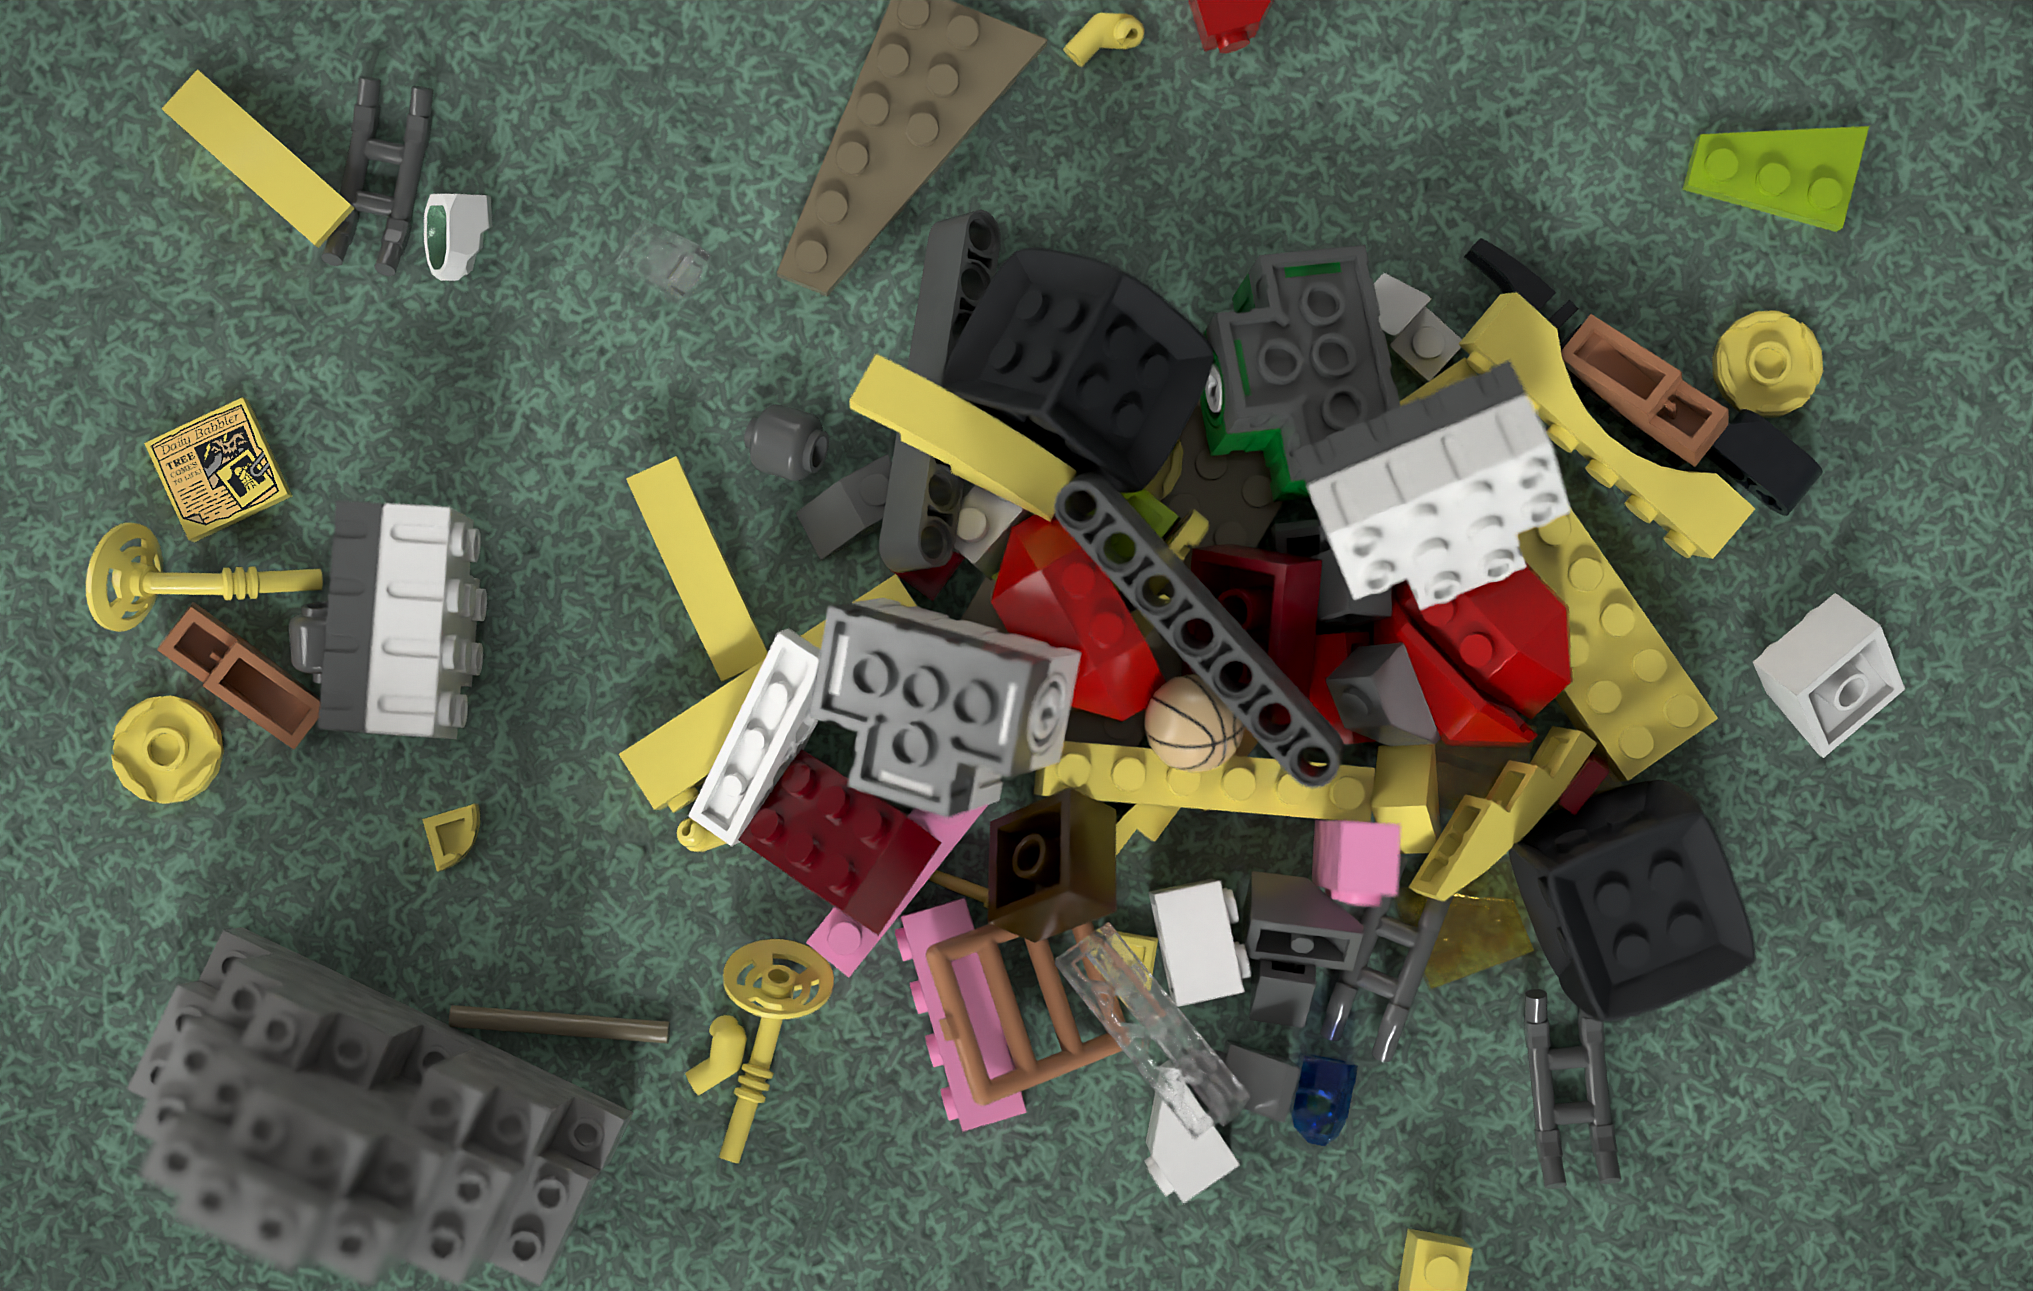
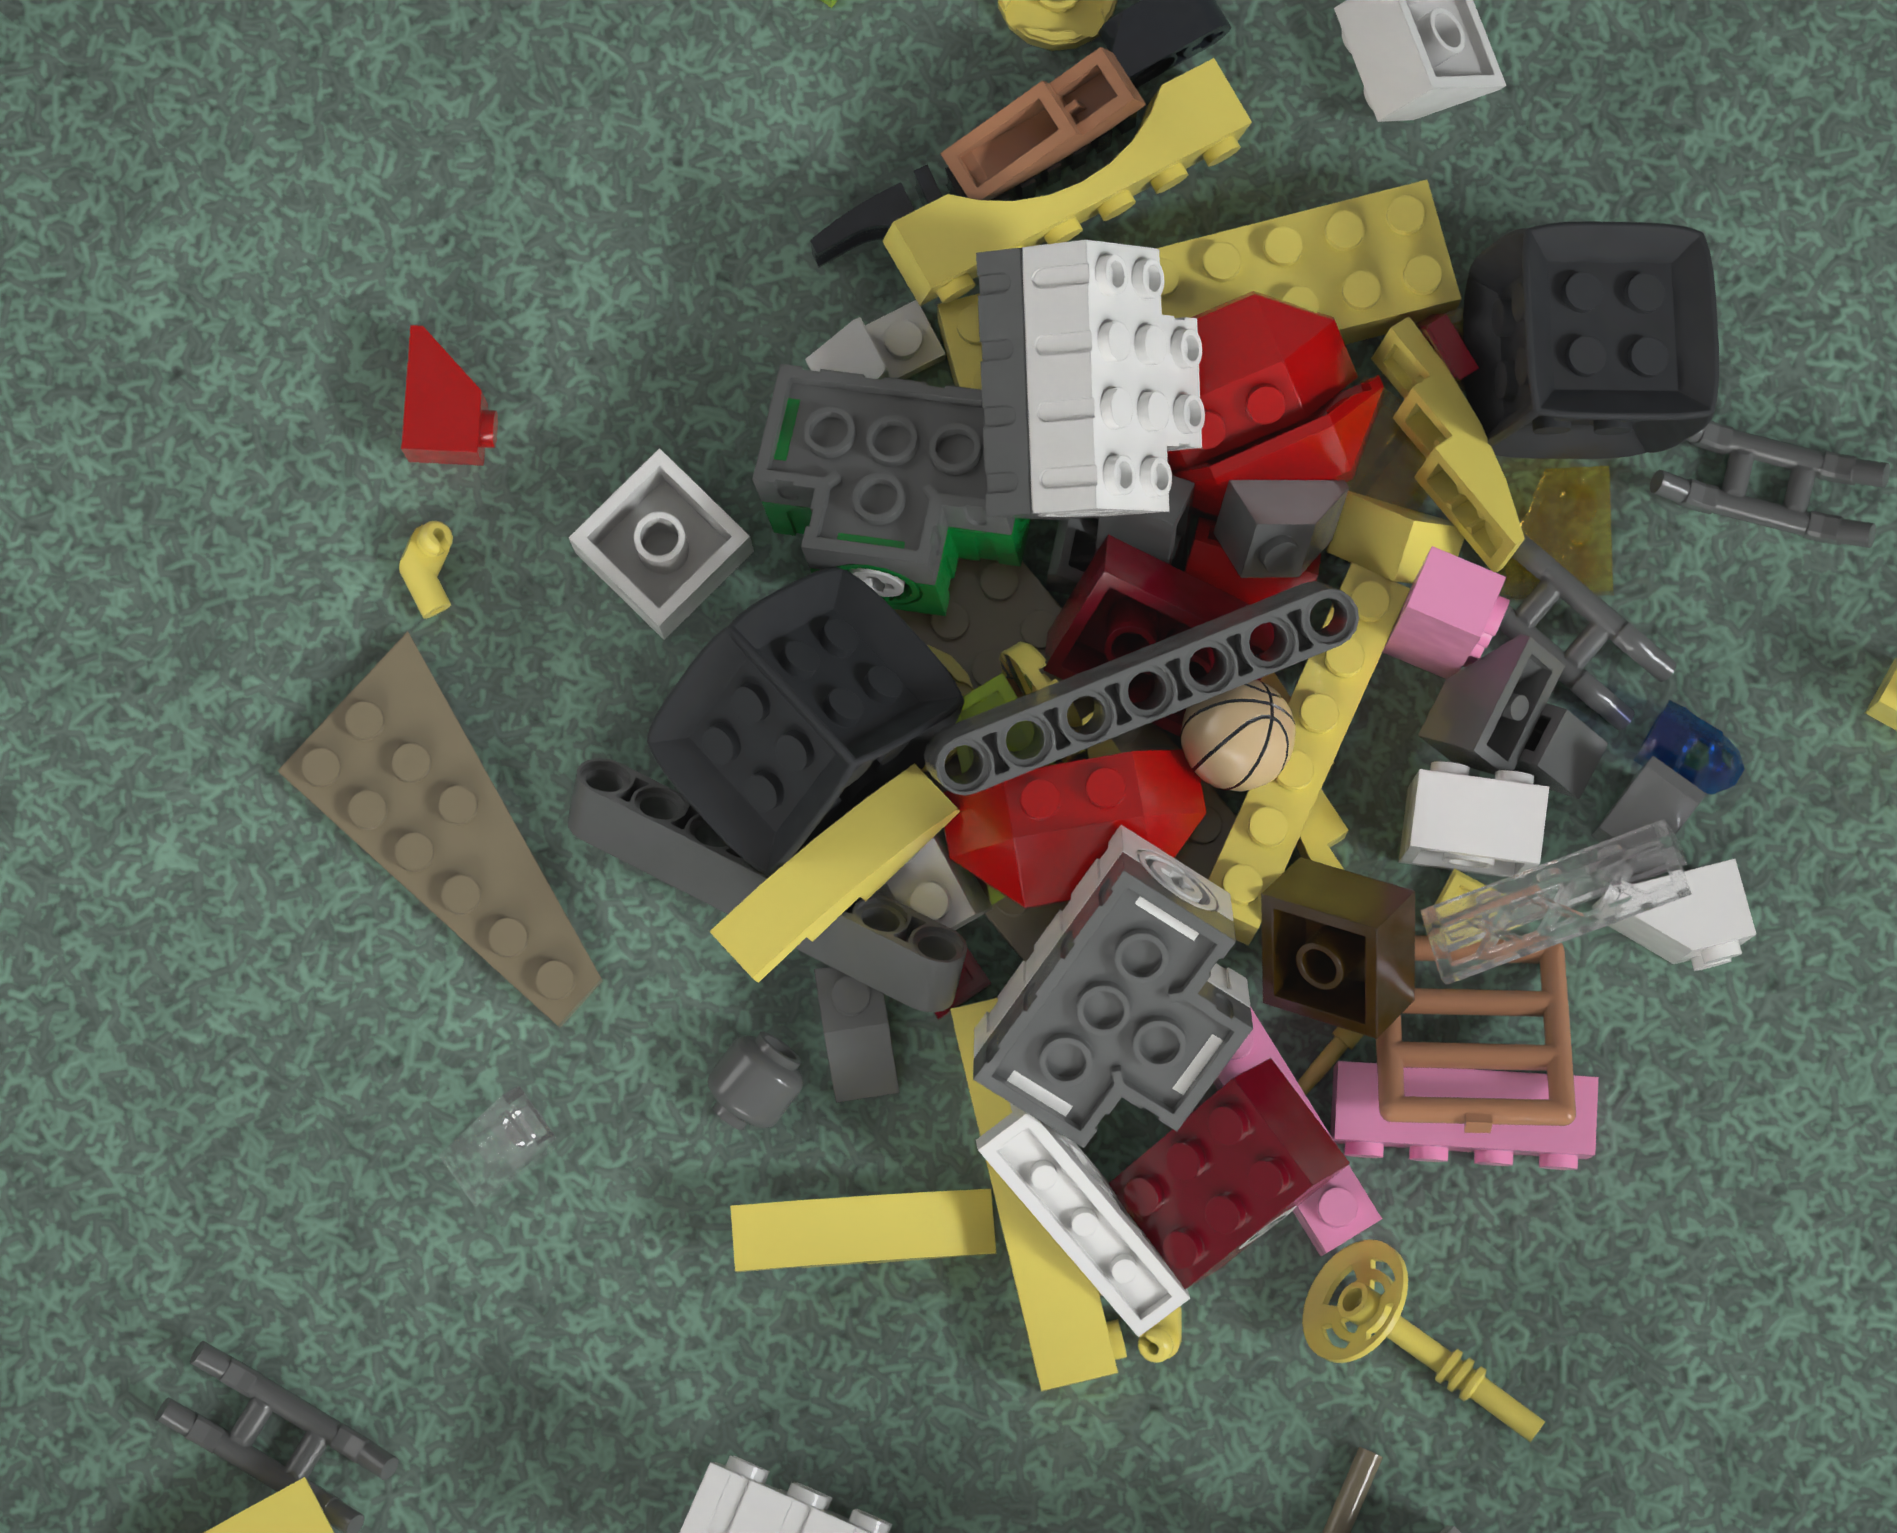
camera: 65 degrees left, 5 degrees down
(455, 232) = (377, 1373): white rock -> none
(725, 1055) = (1420, 1396): light yellow arm -> none
(1187, 209) = (661, 543): none -> white brick

